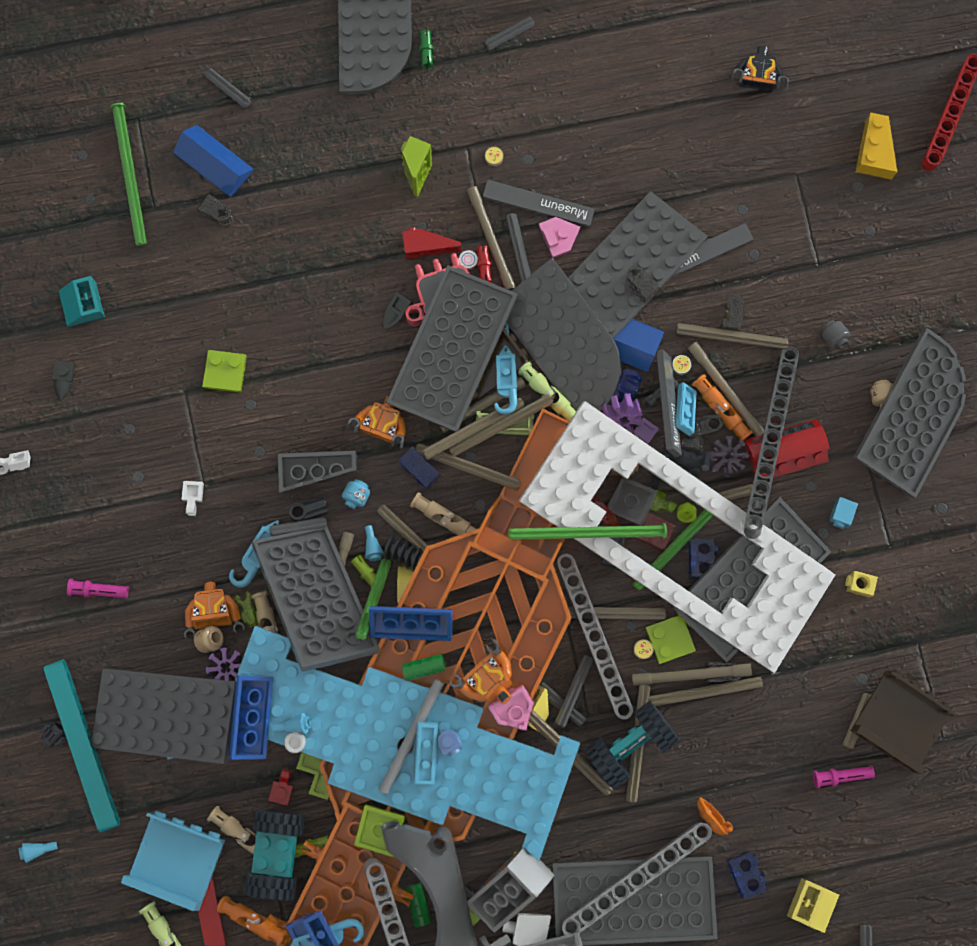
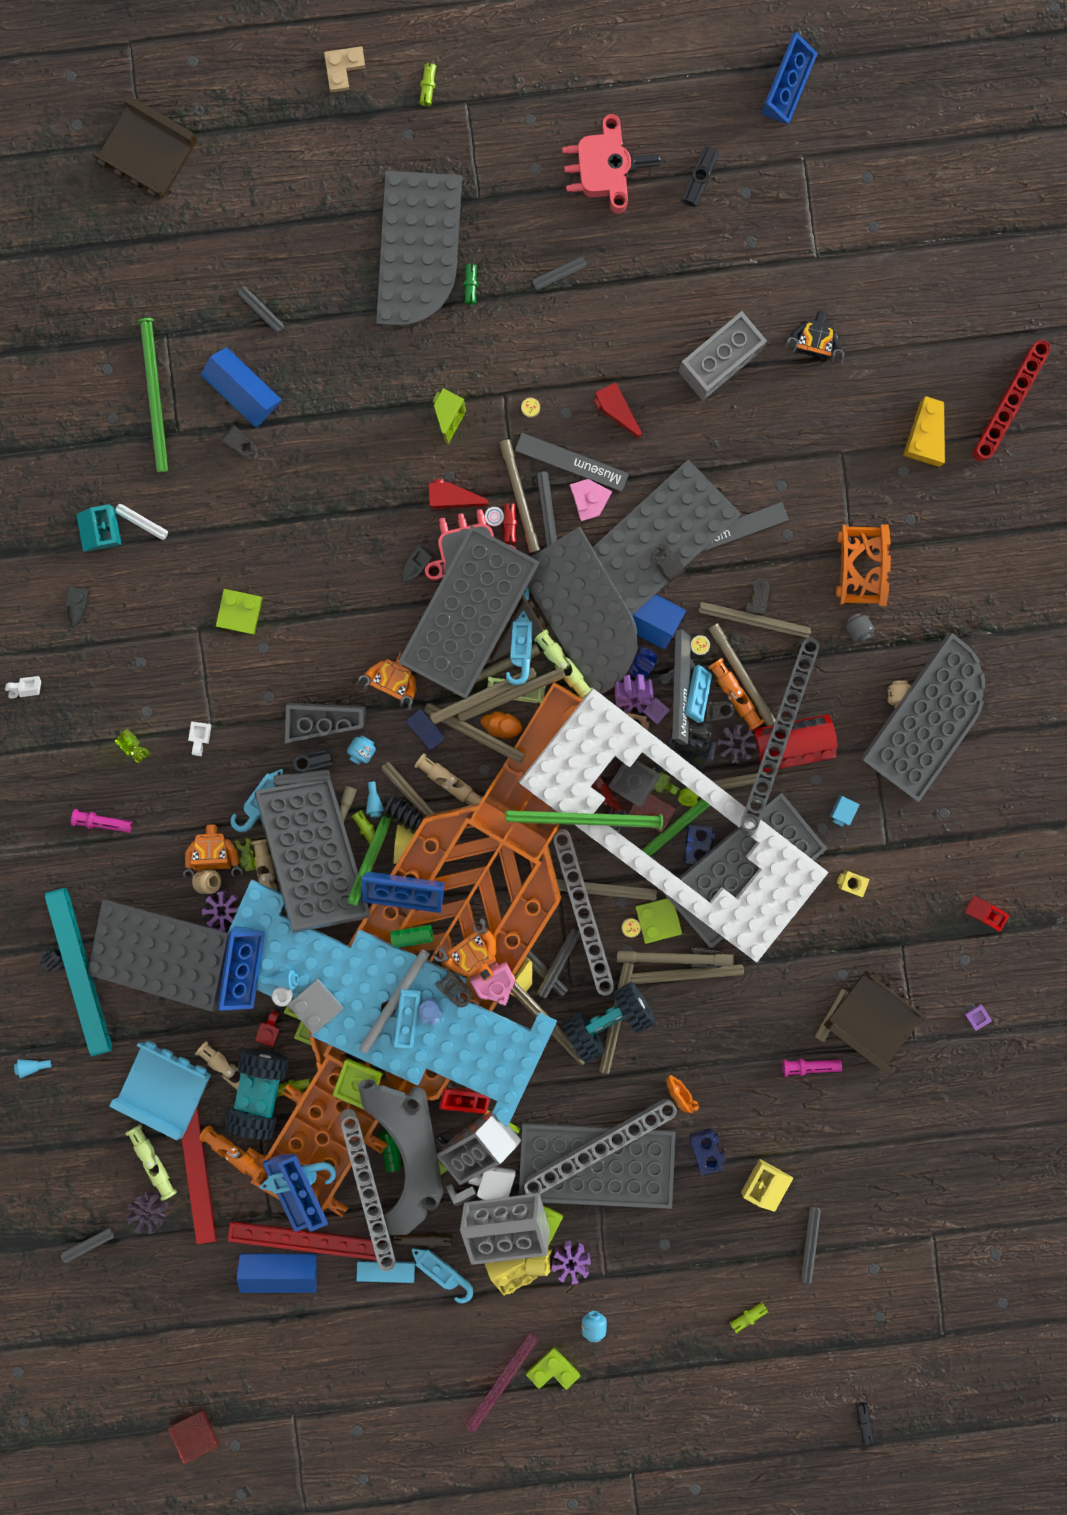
camera: 10 degrees right, 10 degrees up
(122, 510) = (129, 744): none -> clear neon green plate
(123, 293) = (141, 521): none -> white axle
(330, 749) = (315, 1006): none -> light grey plate
(471, 715) = (454, 987): none -> clear smoke piece
(491, 840) = (464, 1100): none -> red slope
(494, 458) = (501, 725): none -> orange arm
(576, 149) = (615, 407): none -> red slope
(672, 90) = (722, 355): none -> light grey brick
(843, 248) = (879, 587): none -> orange fence

